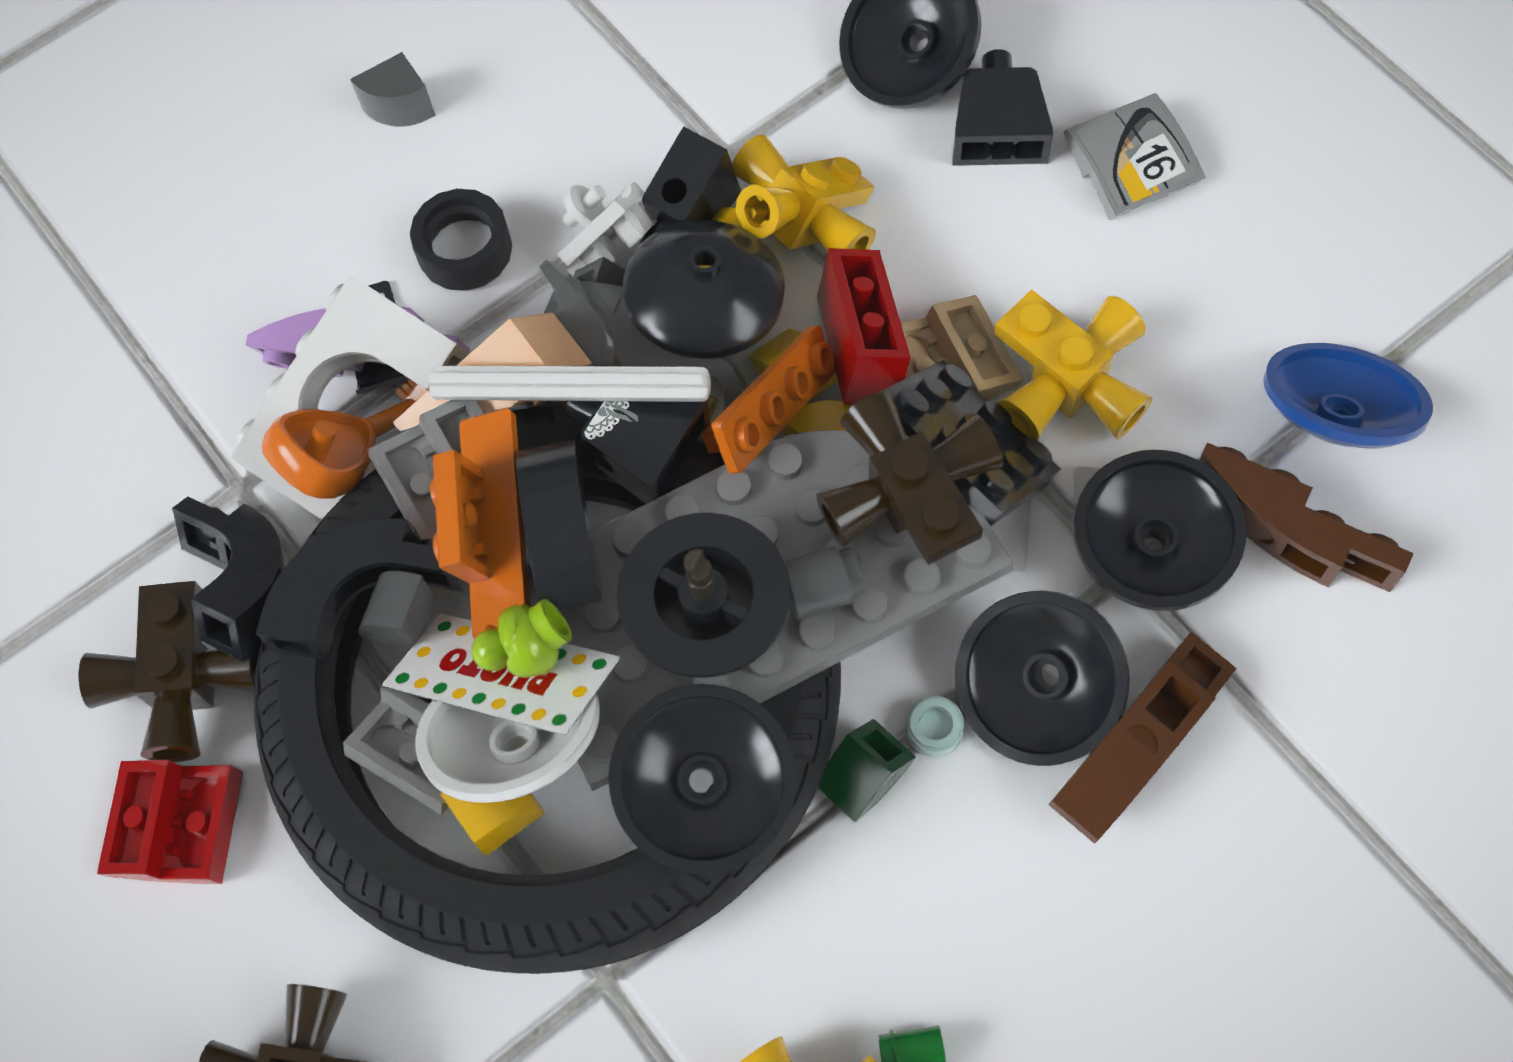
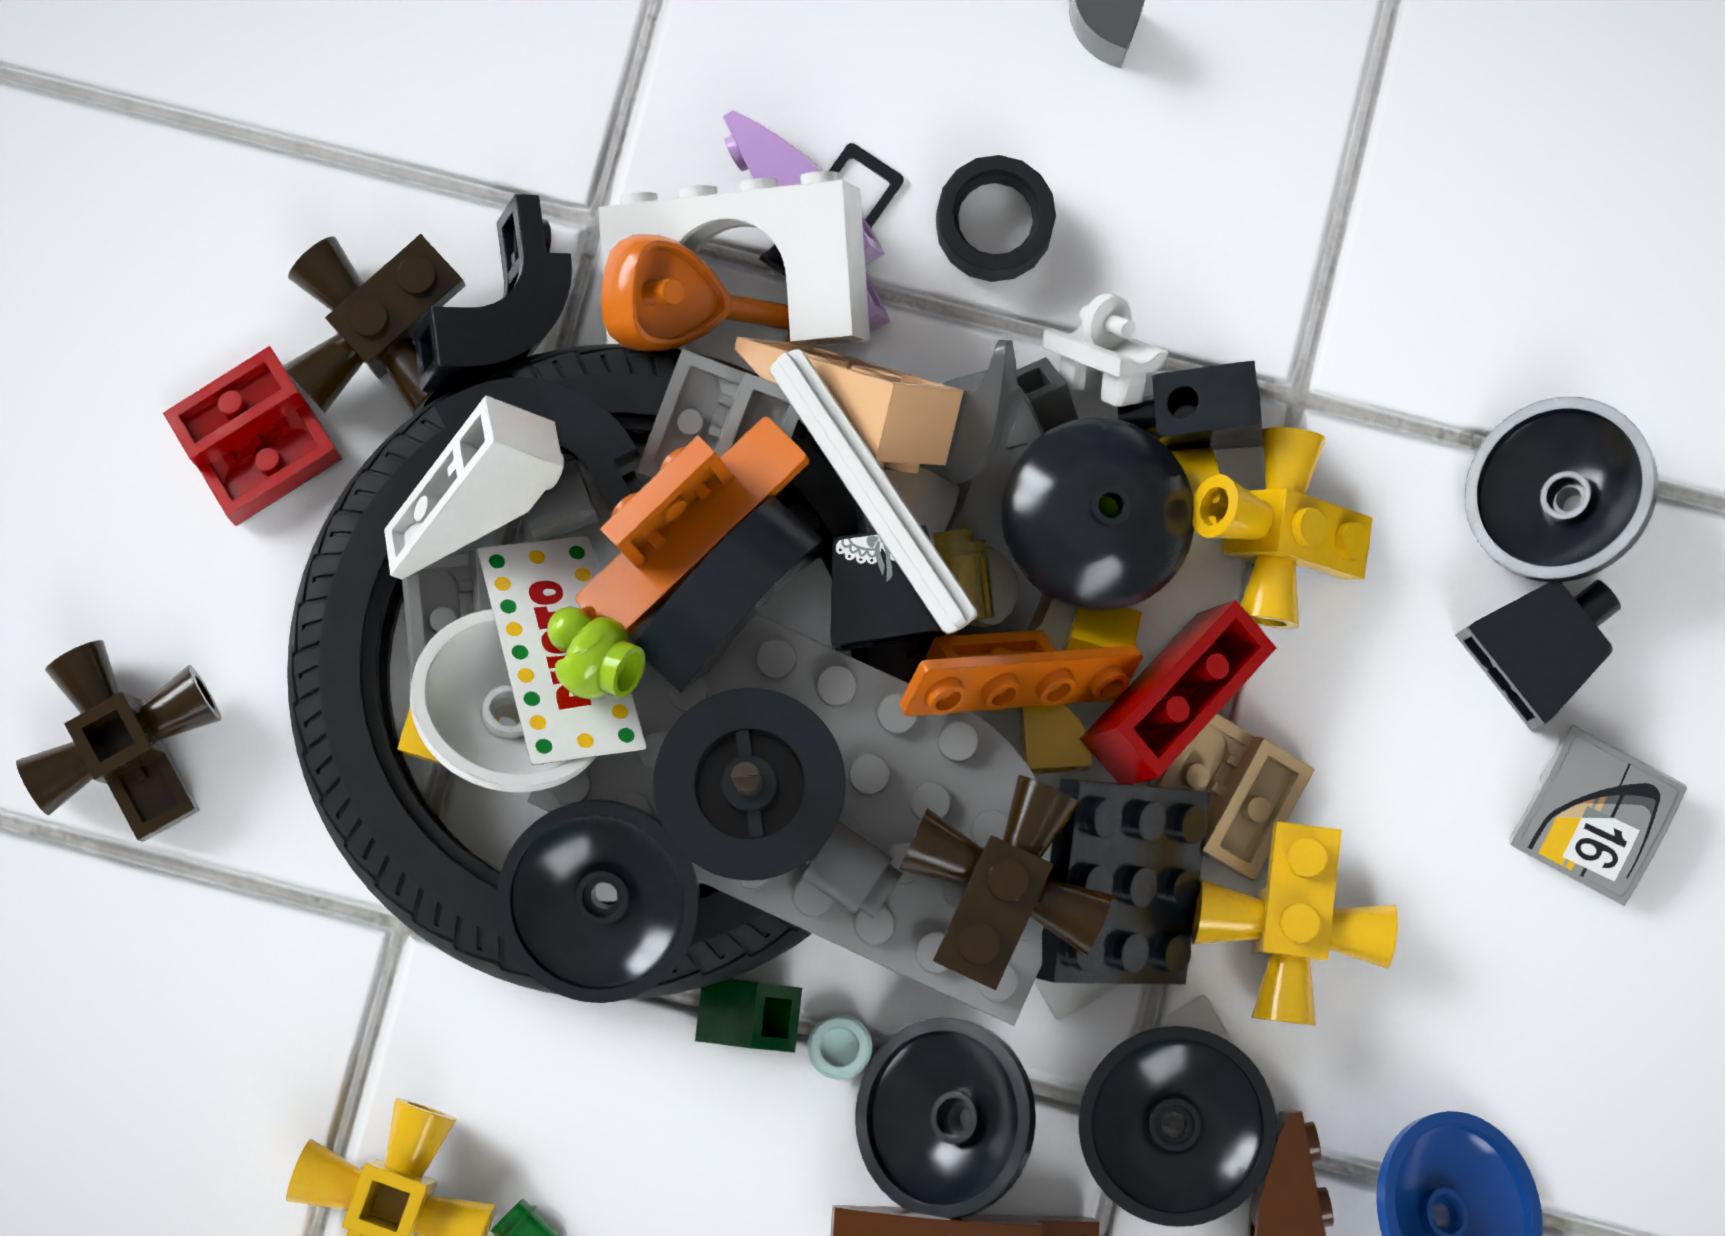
camera: 45 degrees right, 15 degrees up
(336, 638) = (477, 484): none -> white slope

